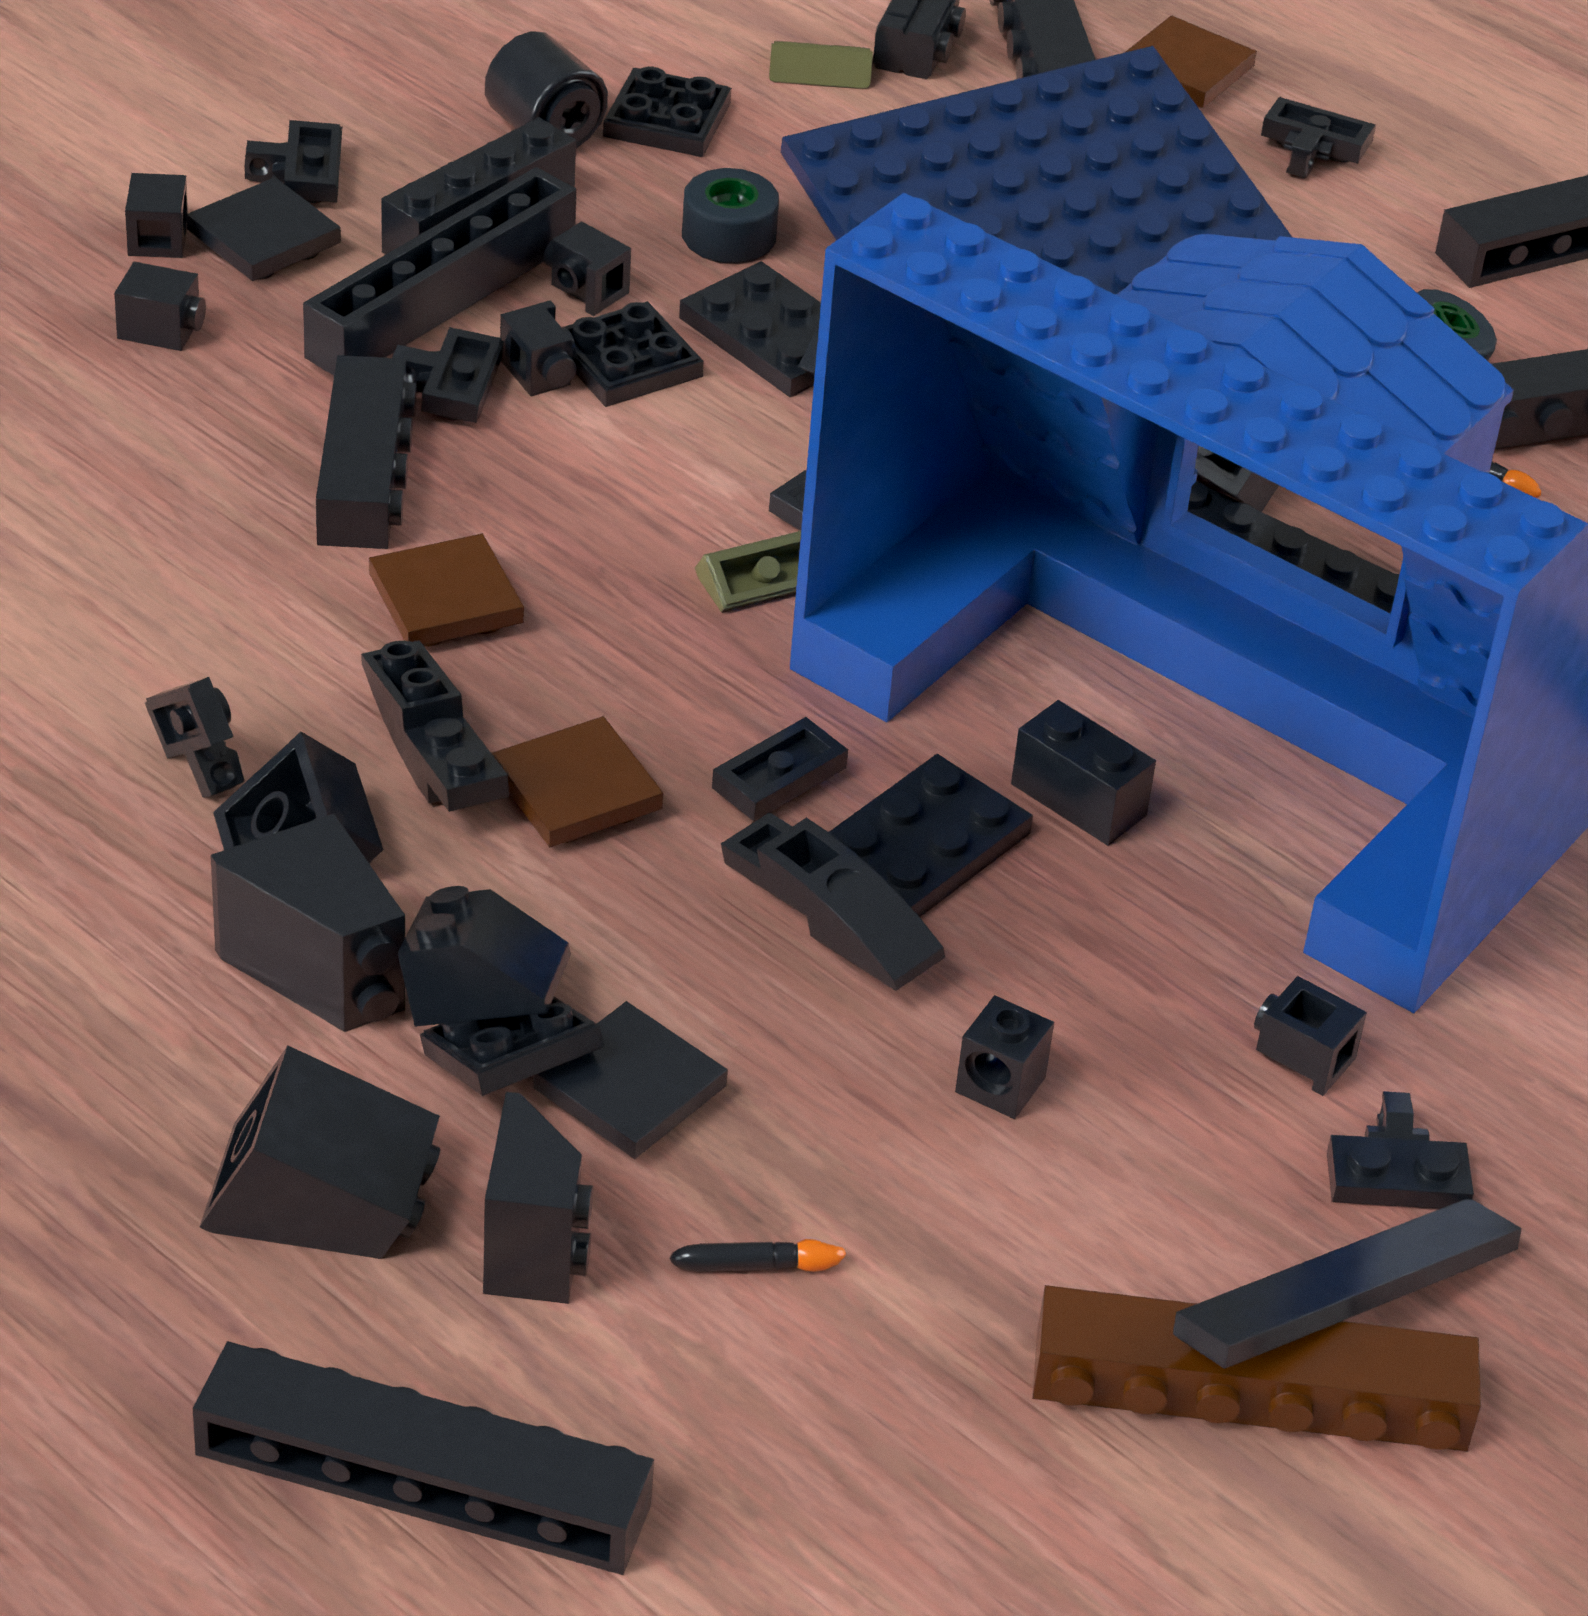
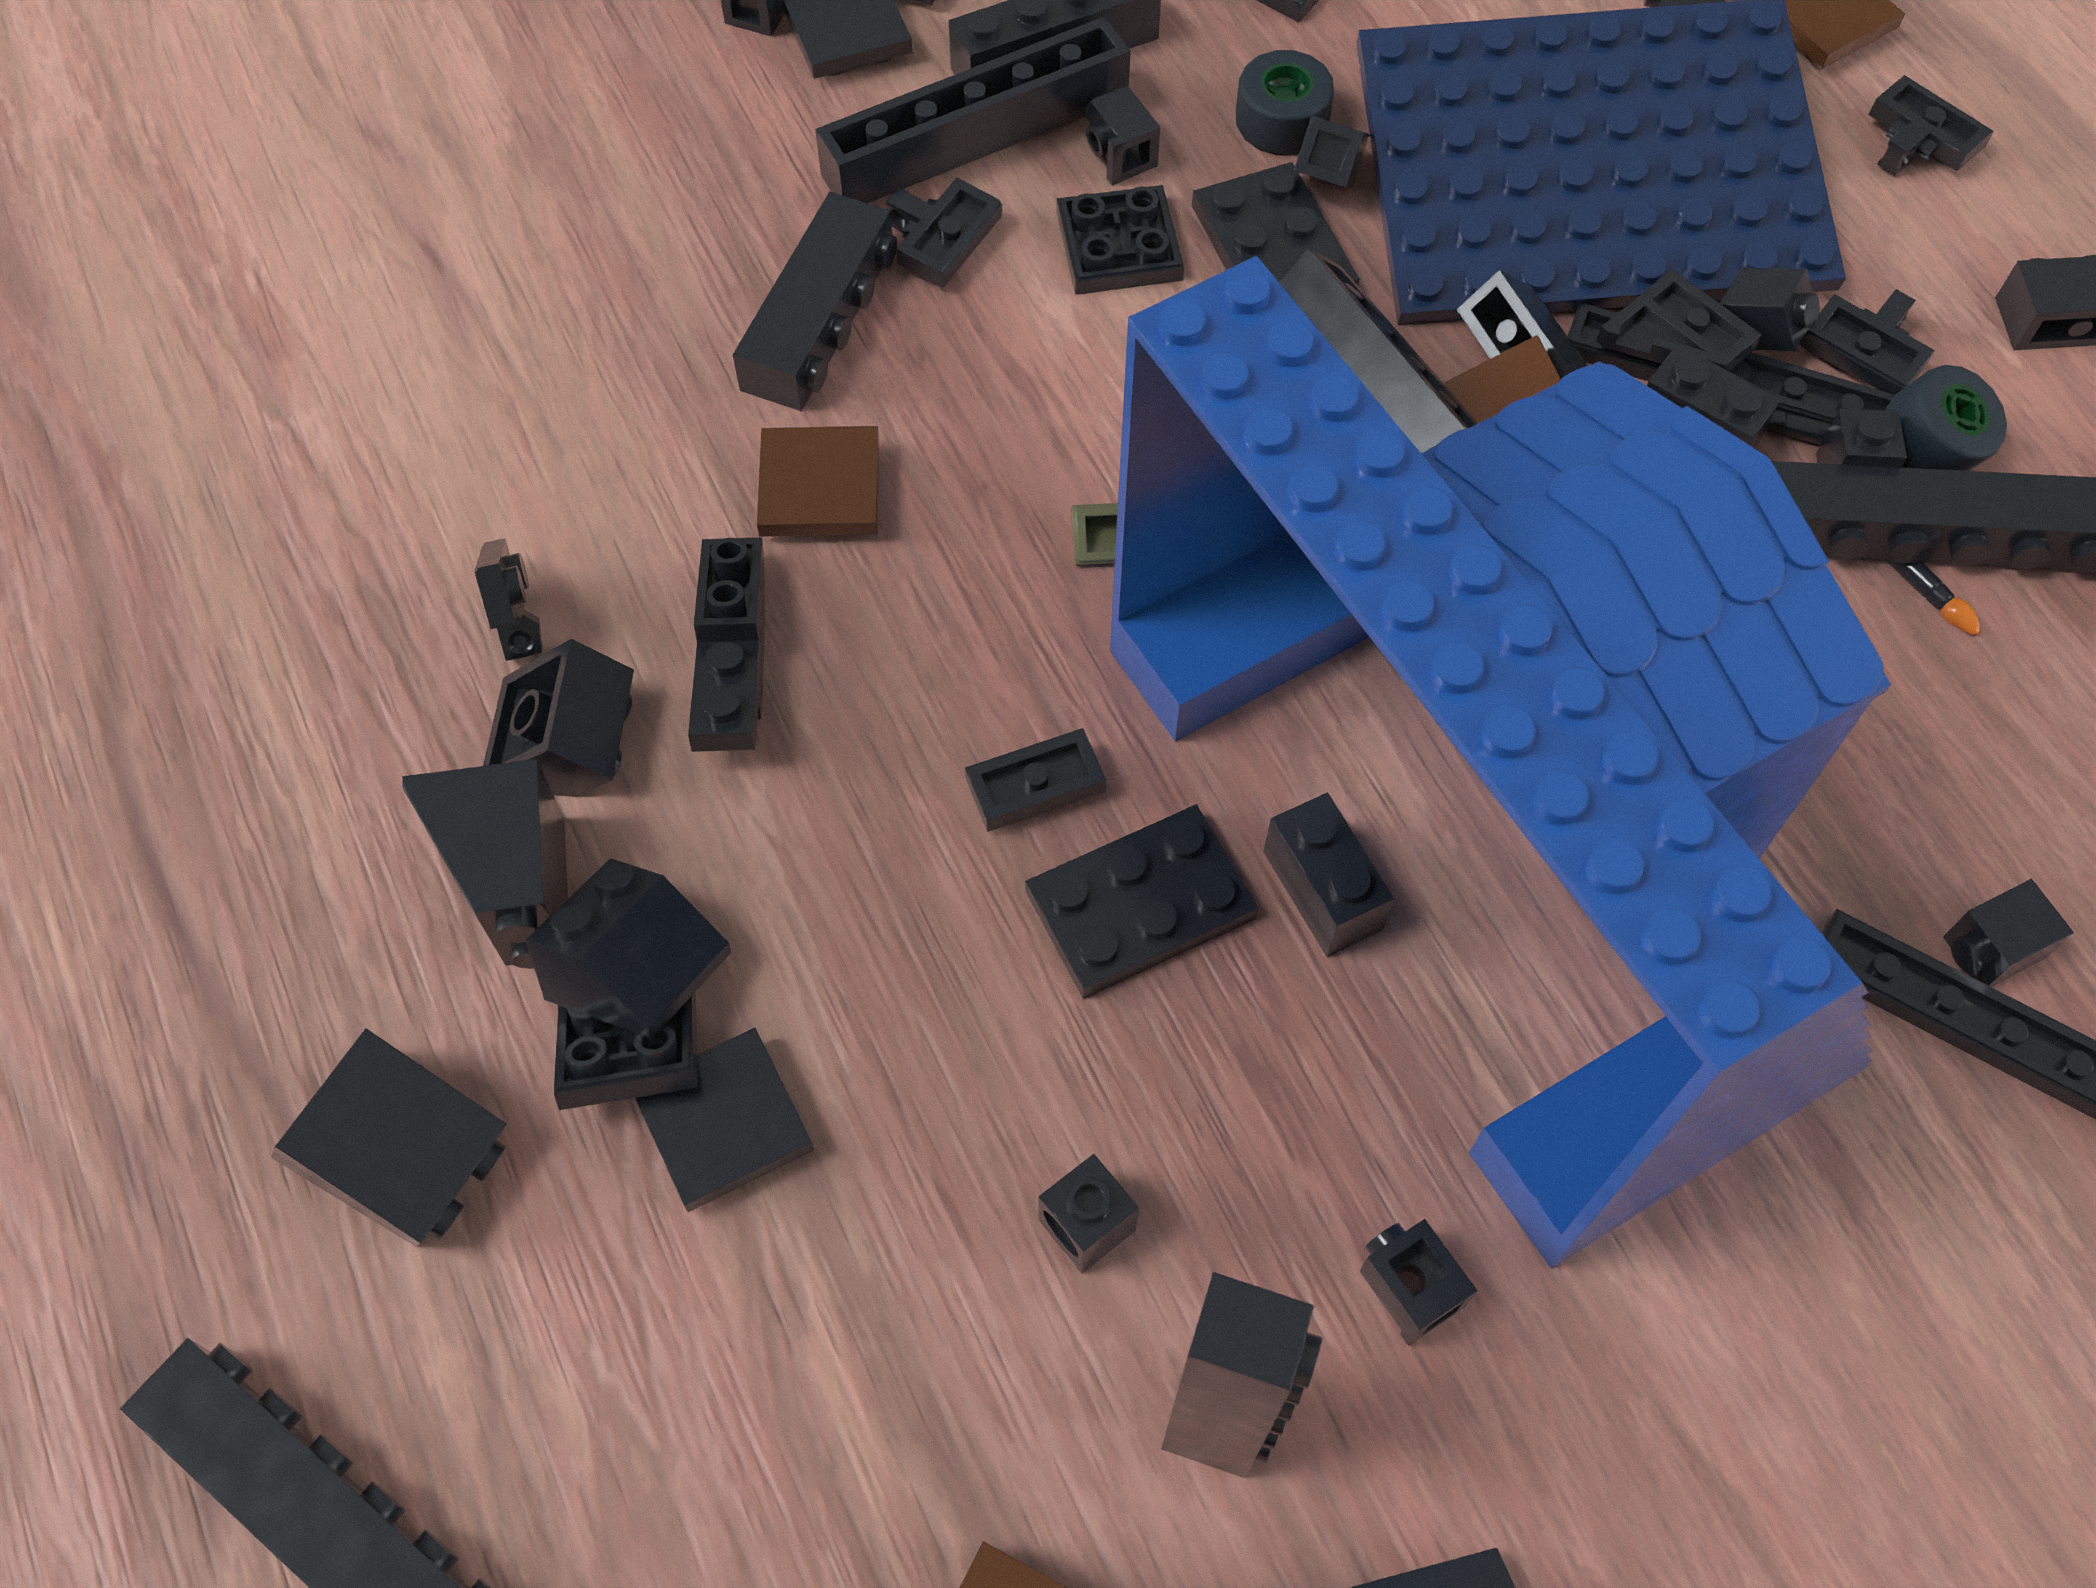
camera: 25 degrees right, 20 degrees up
(158, 306) = (710, 91): black brick -> none
(534, 1209) = (532, 1265): black slope -> none
(537, 348) = (1031, 217): black brick -> none
(578, 781) = (835, 741): reddish brown tile -> none
(753, 1256) = (757, 1372): black piece -> none
(800, 240) = (1331, 152): none -> black brick
(839, 893) = (1008, 965): black slope -> none
(1220, 1045) = (1241, 1375): none -> black brick
(1398, 1163) = (1444, 1472): black hinge -> none

